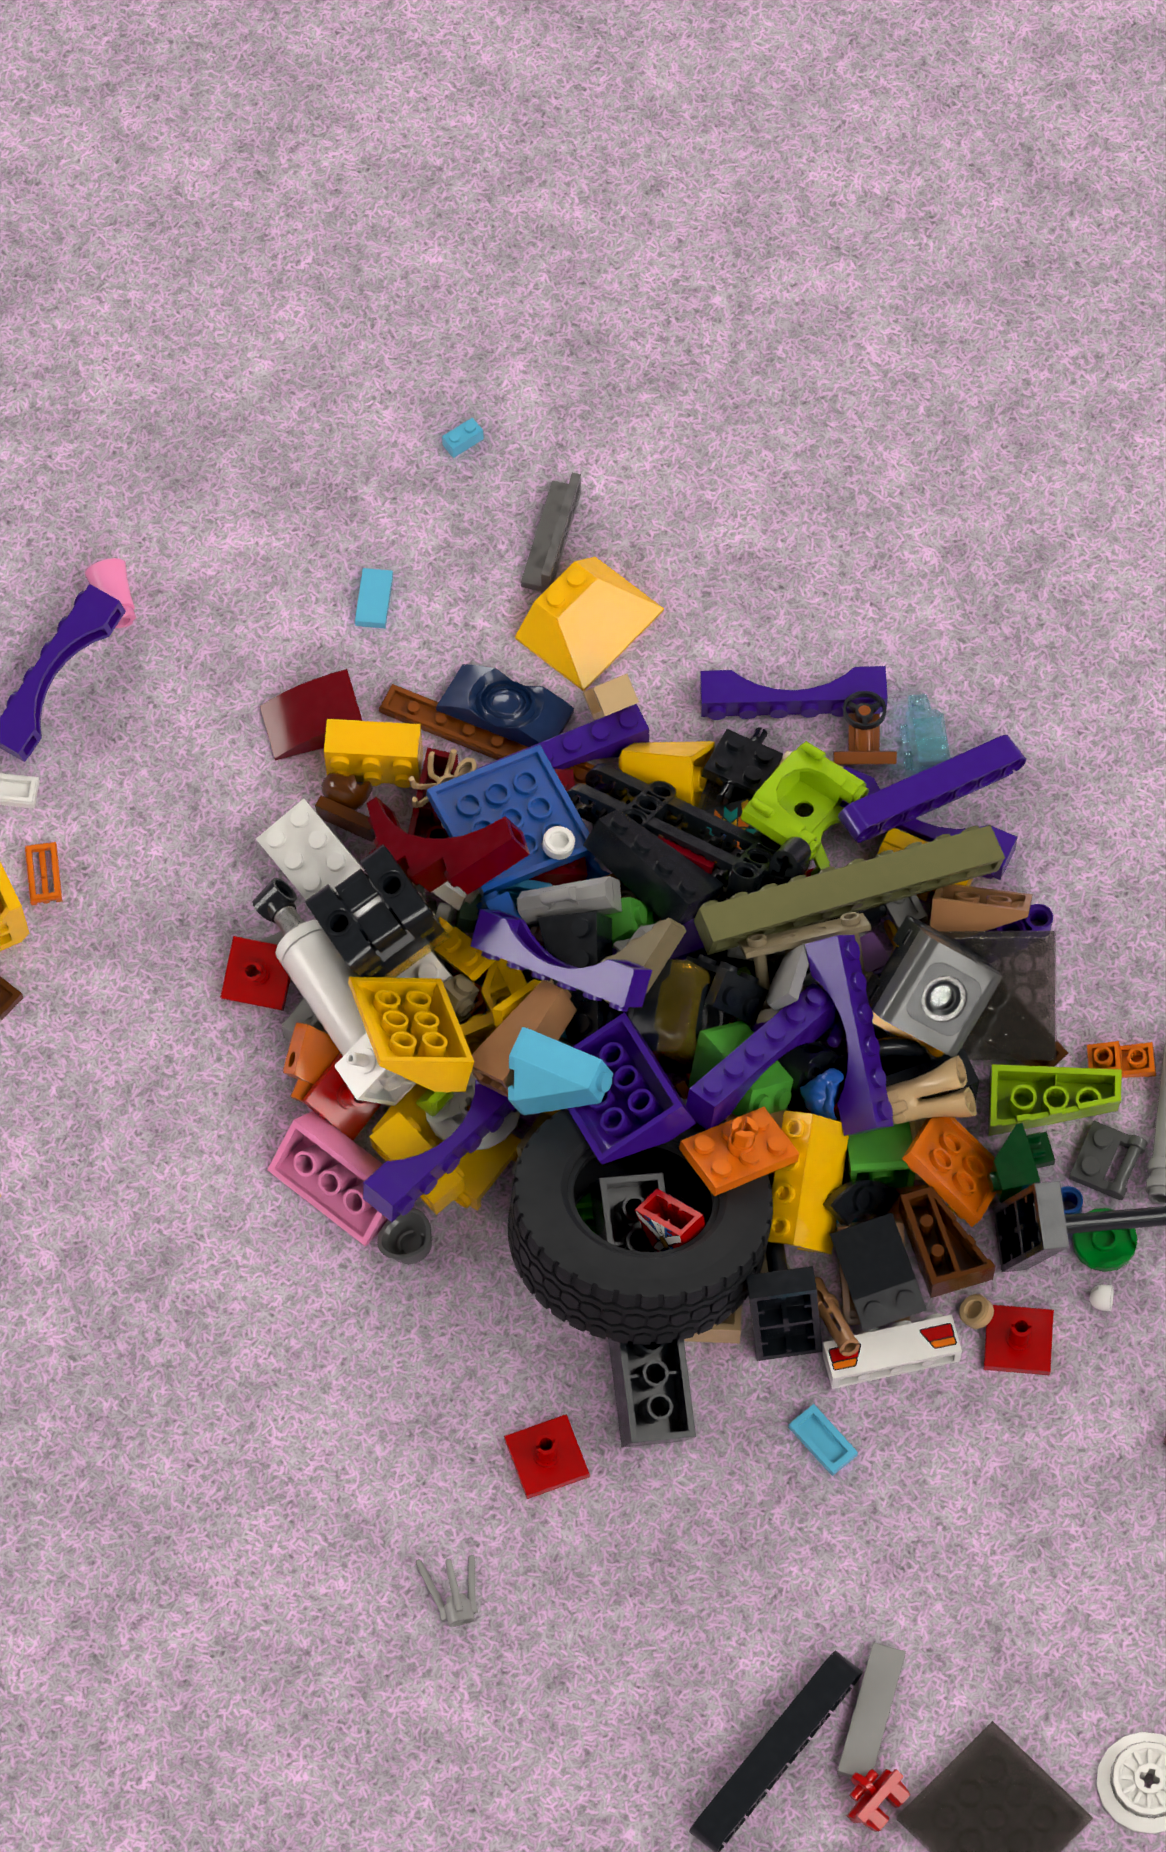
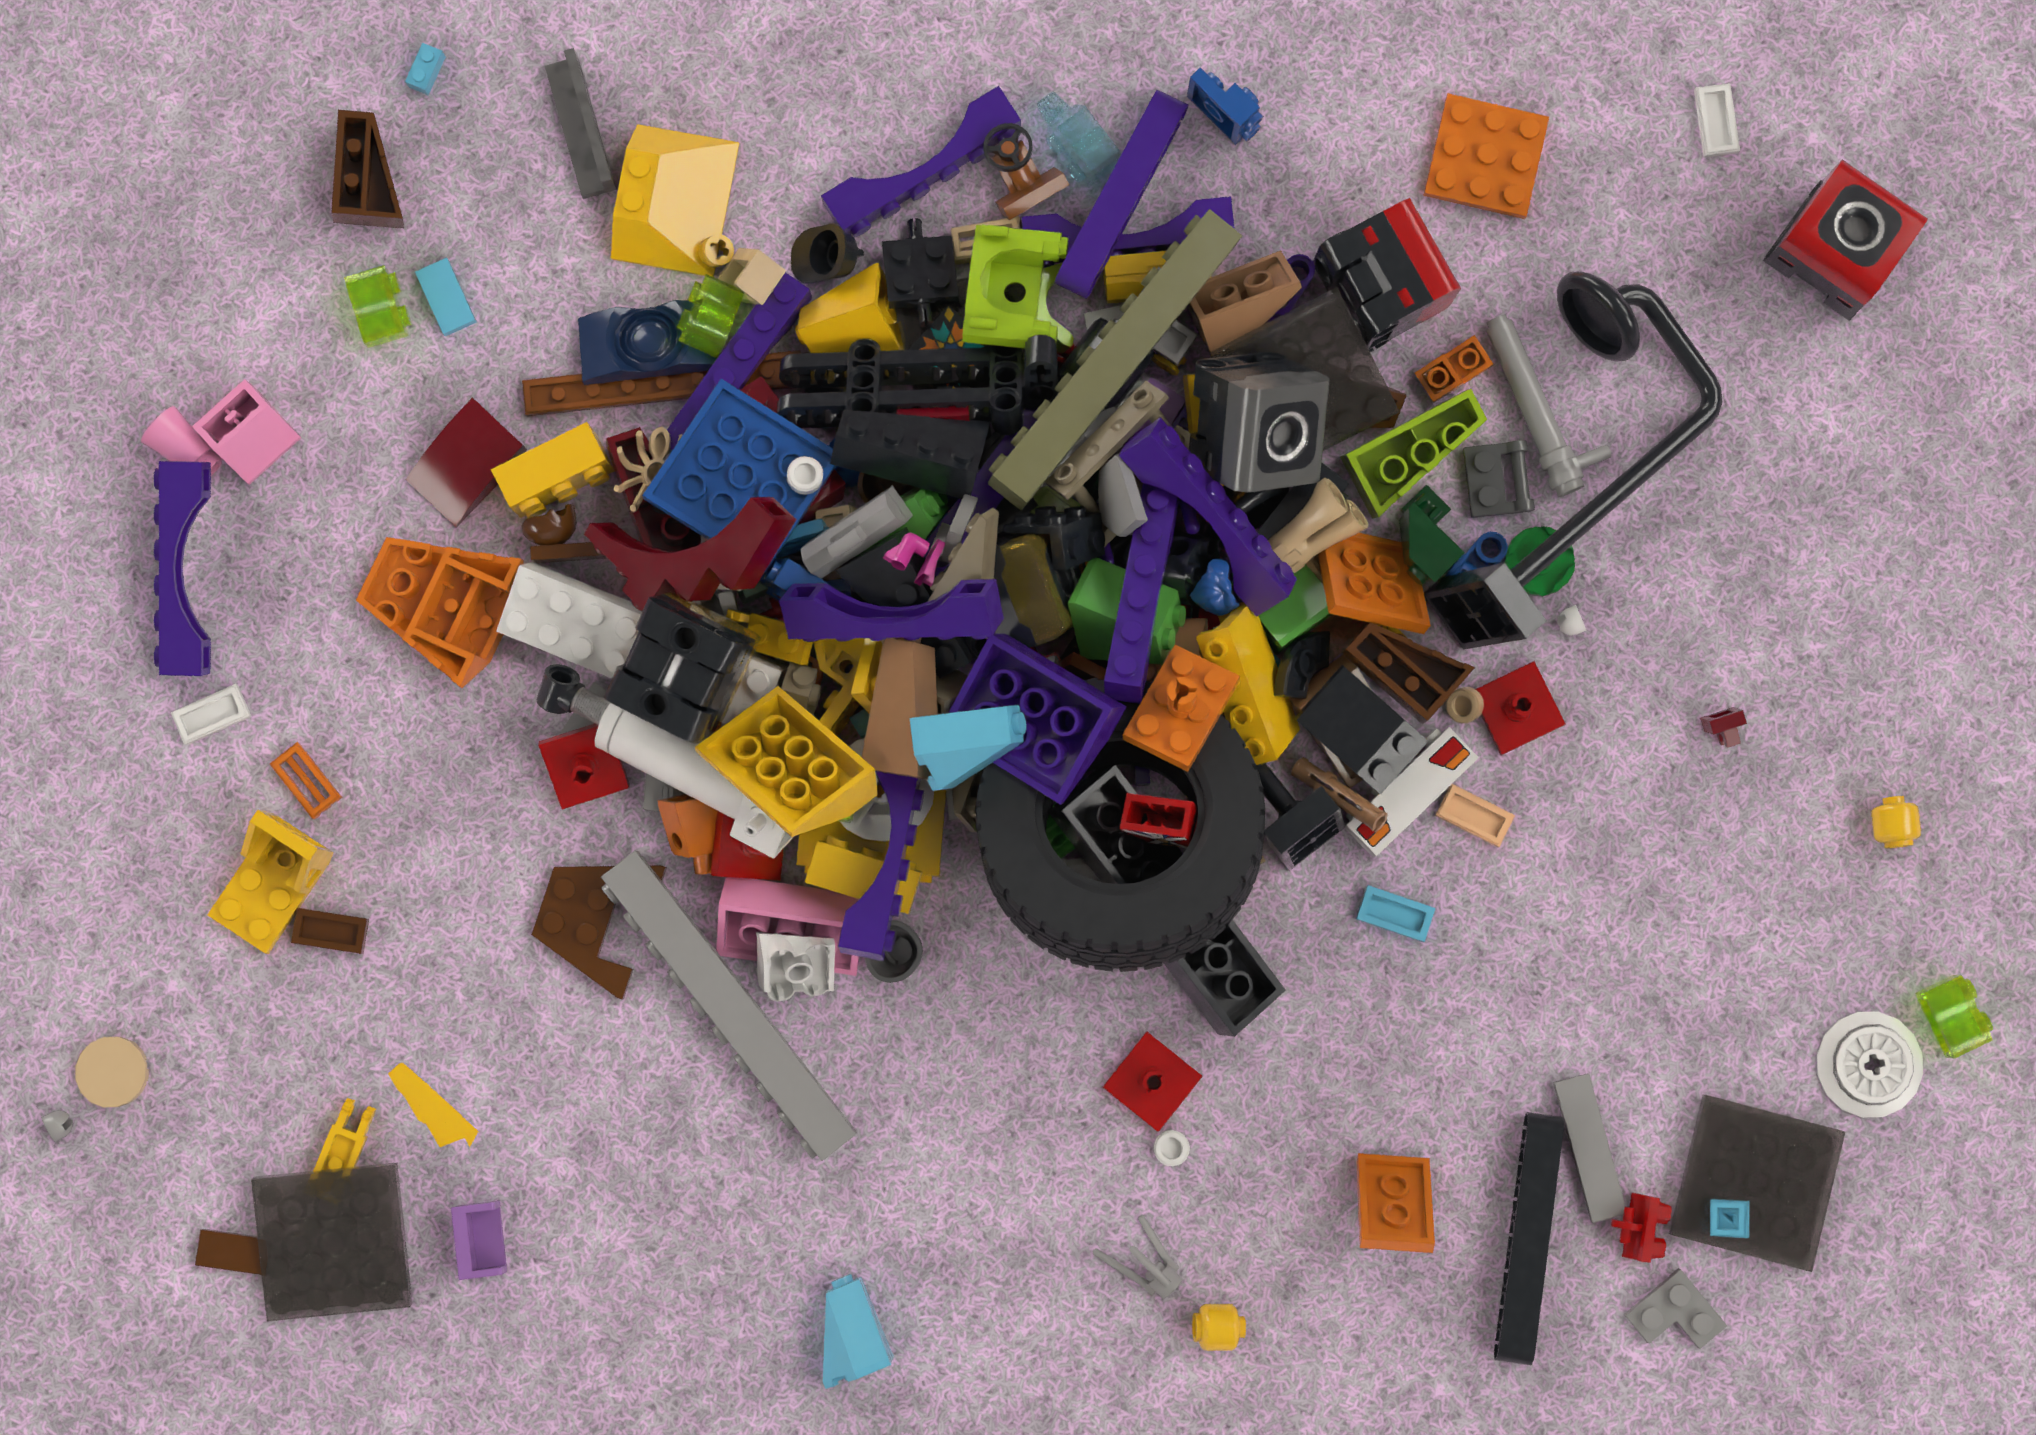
camera: 30 degrees left, 20 degrees up
(165, 607) = (246, 431): none -> bright pink slope
(185, 1507) = (852, 1334): none -> medium azure slope
(186, 1078) = (576, 922): none -> reddish brown wing
(228, 801) = (441, 602): none -> orange wedge
(252, 1208) = (729, 1005): none -> light grey brick
(319, 575) = (377, 306): none -> clear neon green brick
(323, 1205) = (794, 965): none -> white slope
(366, 481) = (362, 176): none -> reddish brown wedge
(479, 1671) = (1218, 1327): none -> yellow head
(529, 1516) = (1171, 1148): none -> white tile
(562, 708) = (710, 315): none -> clear neon green brick
(594, 923) = (912, 543): none -> dark pink piece
(597, 680) = (725, 246): none -> yellow bush
(678, 714) = (824, 254): none -> black piece
(681, 1651) = (1395, 1203): none -> orange plate
(934, 1401) = (1474, 815): none -> light nougat tile
(952, 1825) = (1729, 1218): none -> medium azure tile
(1053, 771) = (1231, 110): none -> blue plate
(1104, 952) = (1387, 273): none -> black piece

